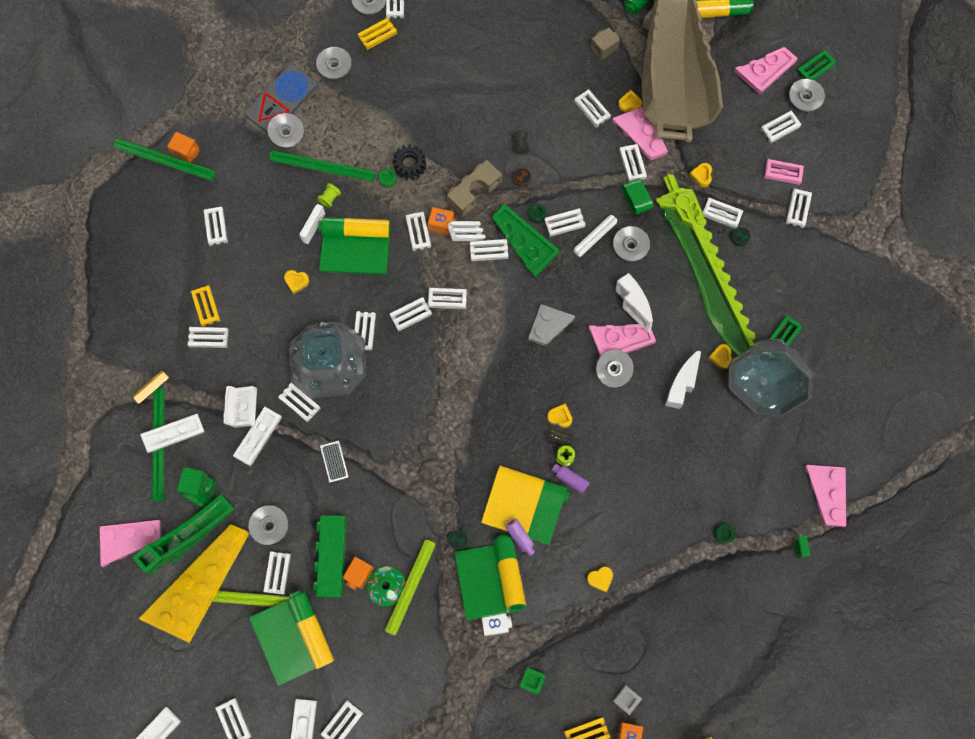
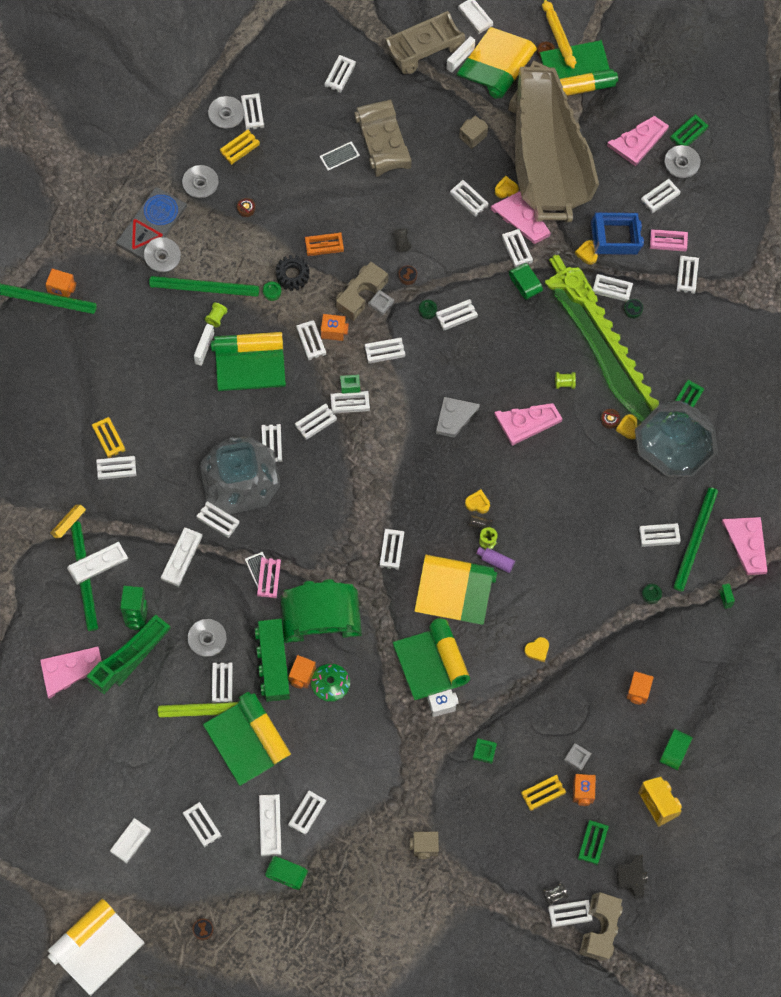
camera: 10 degrees left, 5 degrees down
(190, 596) = (141, 714): yellow wing -> none
(217, 239) = (109, 371): white tile -> none
(240, 406) = (161, 529): white bracket -> none
(296, 281) = (196, 403): yellow tile -> none
(336, 485) = (270, 562): none -> bright pink tile
(374, 93) = (246, 207): none -> tile
(387, 512) = (320, 610): none -> green cylinder
(410, 587) = (354, 679): lime axle -> none
(444, 140) = (324, 247): none -> orange tile
(450, 280) = (350, 384): none -> green tile
(458, 540) = (394, 630): tile -> none
(463, 470) = (389, 564): none -> white tile
(465, 227) = (358, 331): white tile -> none
(472, 53) = (339, 155): none -> sticker
(492, 201) = (381, 302): none -> light grey tile
(516, 39) = (382, 137): none -> dark tan piece
(520, 536) = (454, 618): medium lavender cylinder -> none
(527, 243) = (424, 340): green wing -> none
(595, 235) = (488, 324): white axle -> none
(623, 369) = (533, 446): light grey dish -> none
(633, 236) = (526, 320): light grey dish -> none
(635, 301) = (536, 383): white slope -> none
(664, 301) = (565, 380): none -> lime bush
(683, 382) = (594, 455): white slope -> none
(700, 635) = (640, 688): none -> orange brick
(705, 345) = (610, 418): none -> tile
(723, 472) = (671, 541): none -> white tile
(730, 706) = (676, 749): none -> green beam
(737, 145) = (616, 219): none -> blue window
(776, 482) = (695, 539): none -> green axle

